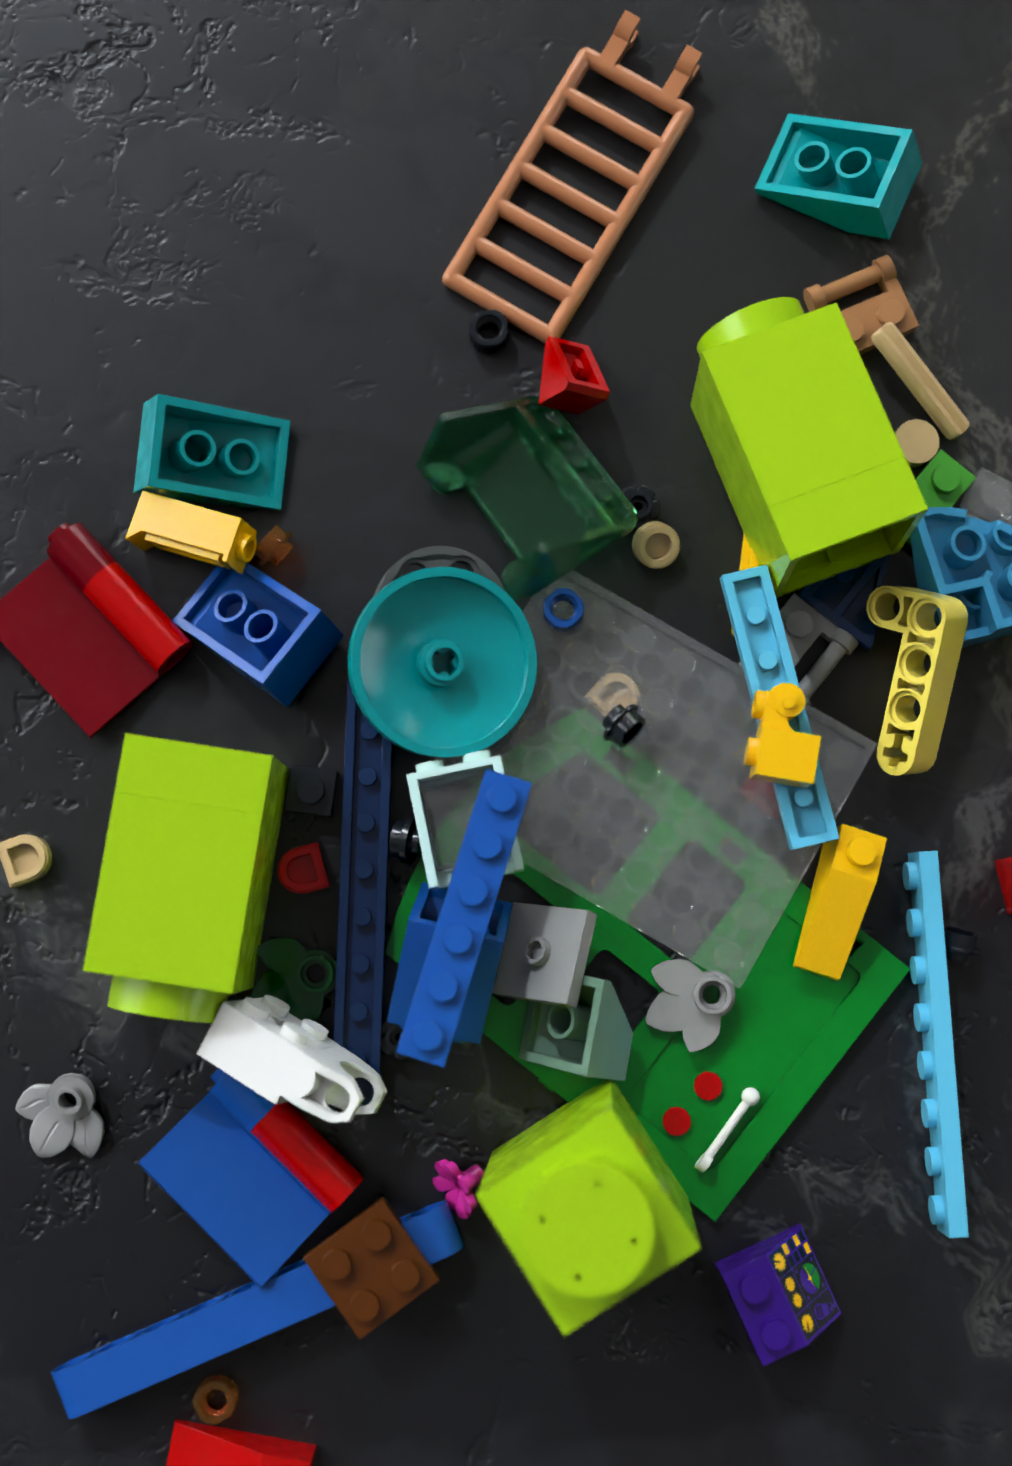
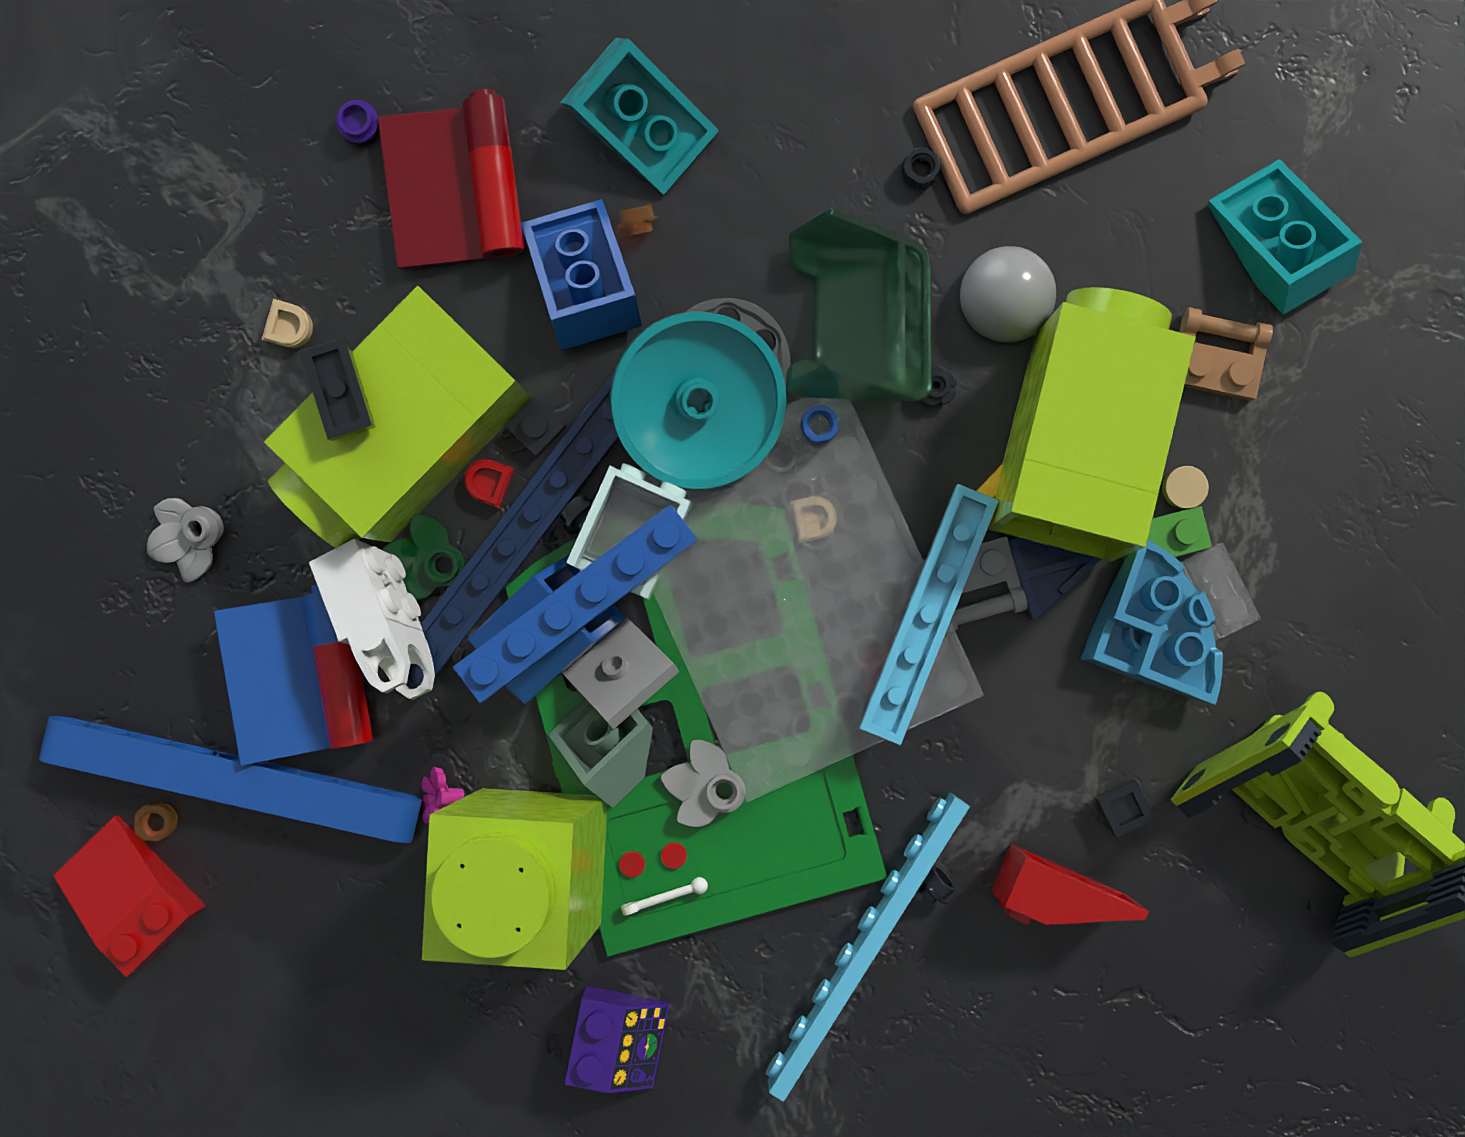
camera: 35 degrees right, 5 degrees up
(118, 874) = (337, 389): none -> black plate
(192, 532) = (582, 165): yellow window -> none
(371, 1267) = (331, 809): reddish brown plate -> none
(571, 377) = (957, 248): red slope -> none
(623, 724) = (801, 544): black plate -> none
(646, 384) = (1008, 294): none -> light grey piece
(656, 544) = (928, 424): tan tile -> none
(778, 751) = (901, 648): yellow brick -> none
(839, 900) = (869, 790): yellow slope -> none
(910, 677) = (1009, 708): light yellow beam -> none
(920, 381) = (1224, 442): tan axle -> none

